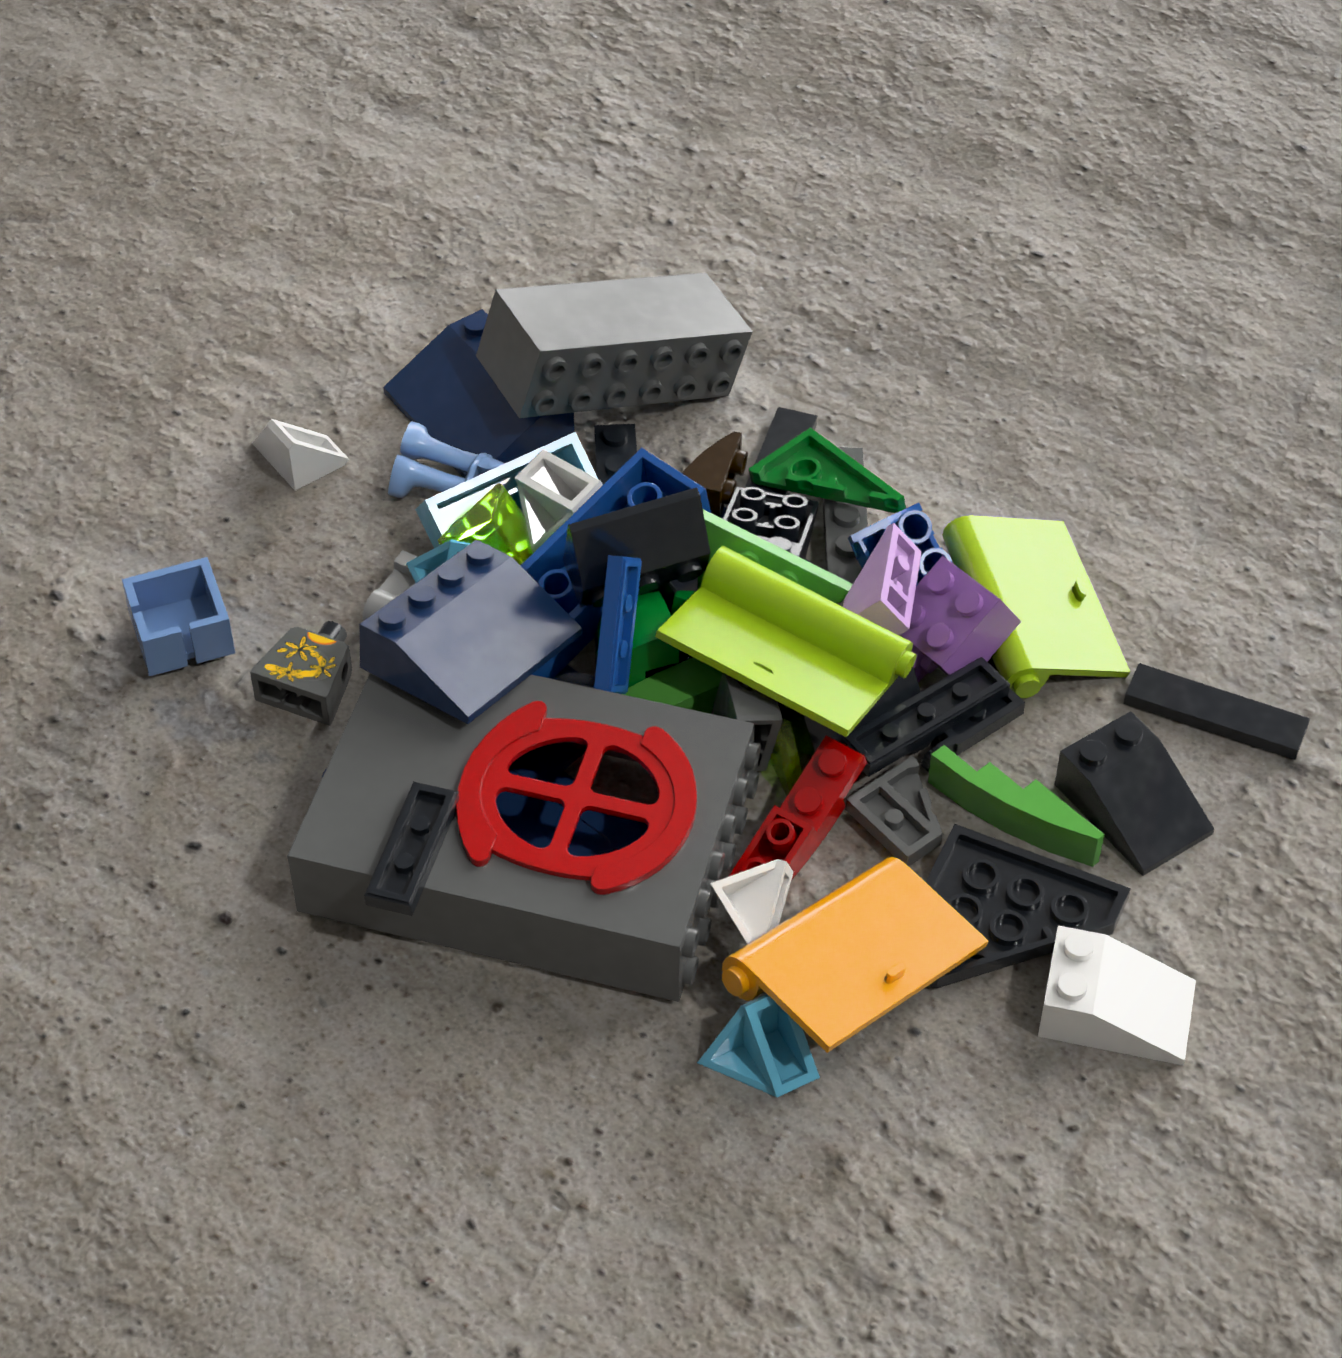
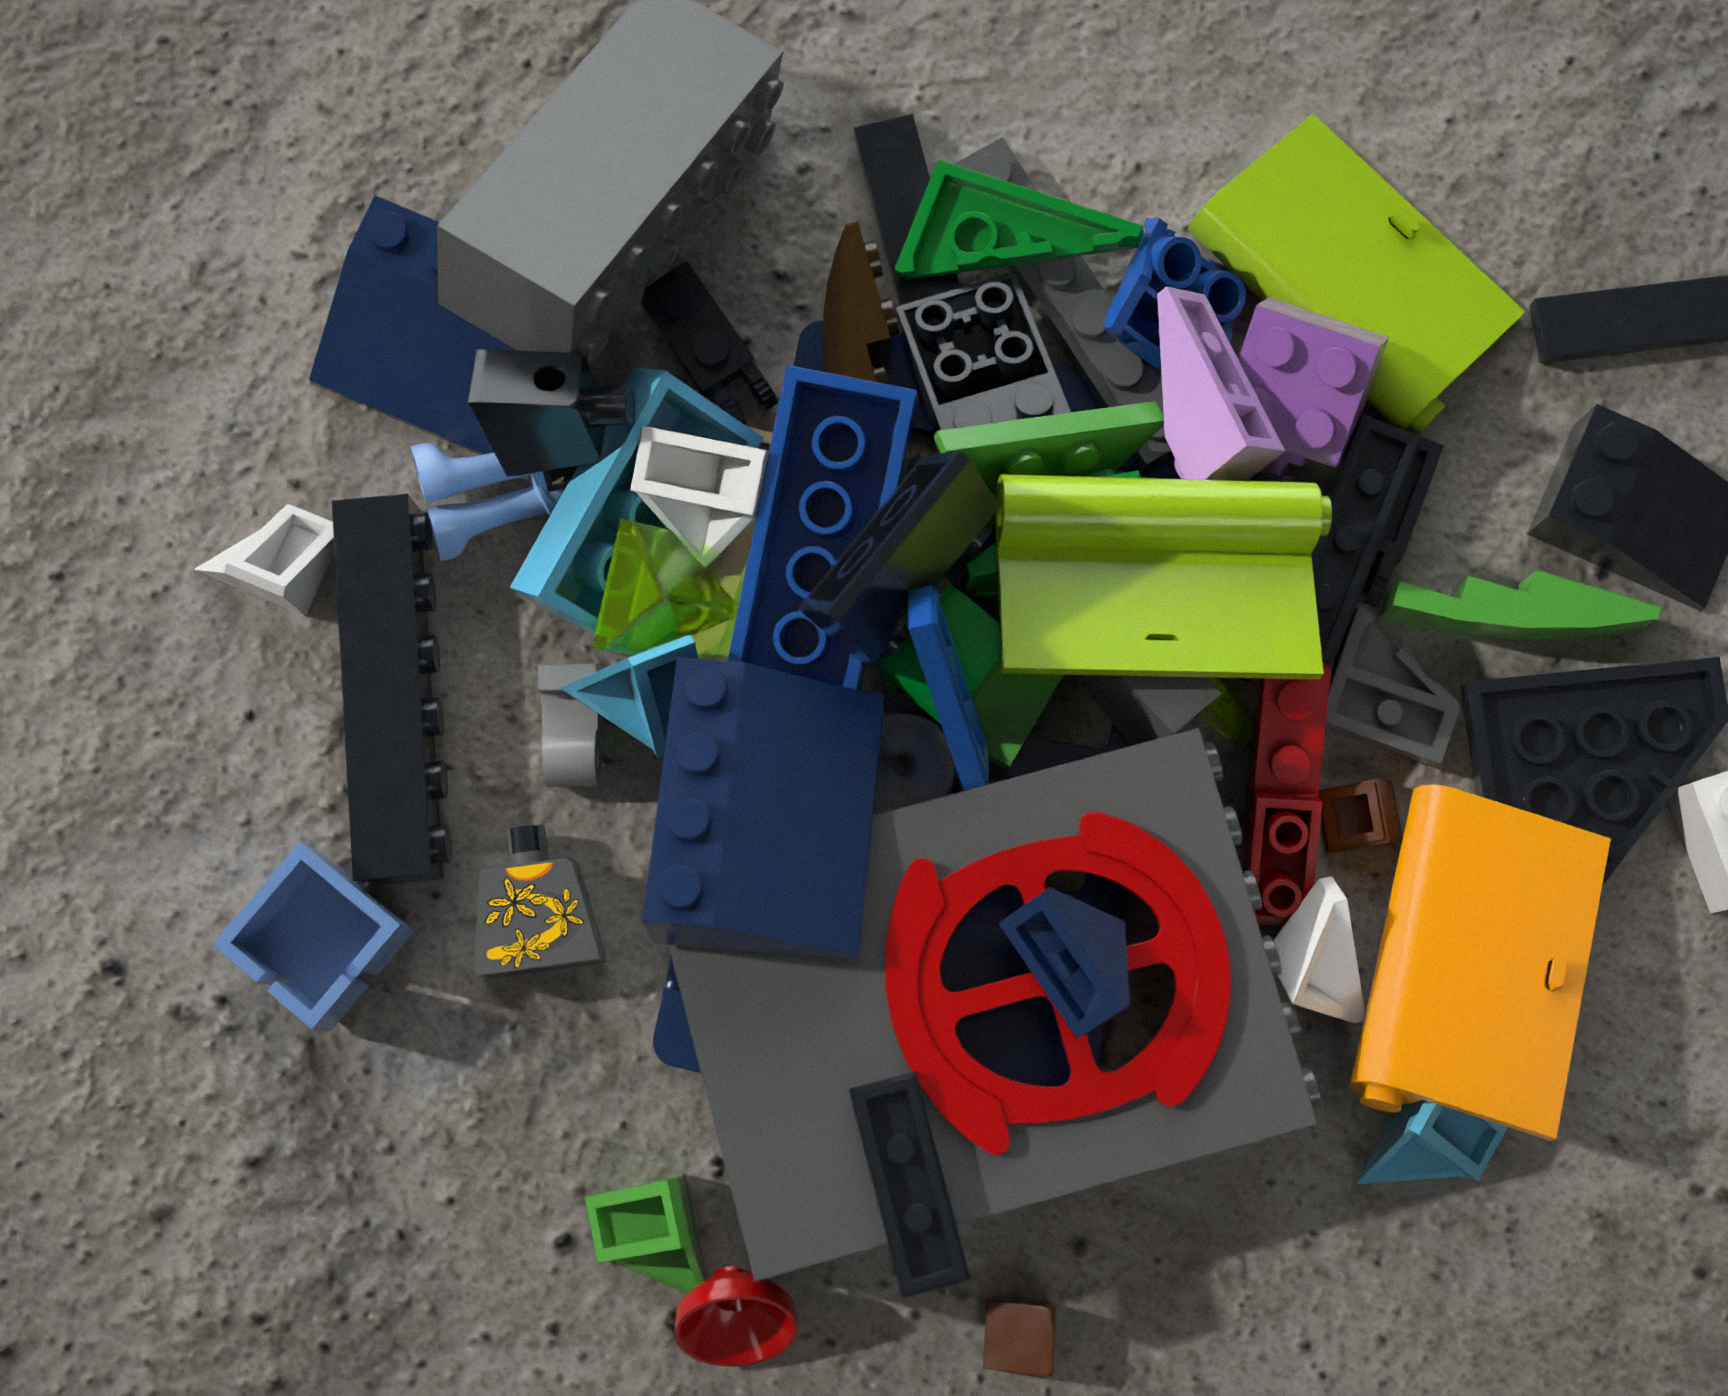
camera: 30 degrees left, 30 degrees up
(244, 918) = (735, 1319): none -> red piece
(252, 856) = (649, 1231): none -> bright green slope
(309, 536) = (389, 691): none -> black brick
(425, 1025) = (1019, 1337): none -> reddish brown slope
(494, 420) = (544, 409): none -> black torso
(592, 776) = (1074, 957): none -> dark blue slope
(838, 865) = (1360, 815): none -> reddish brown slope

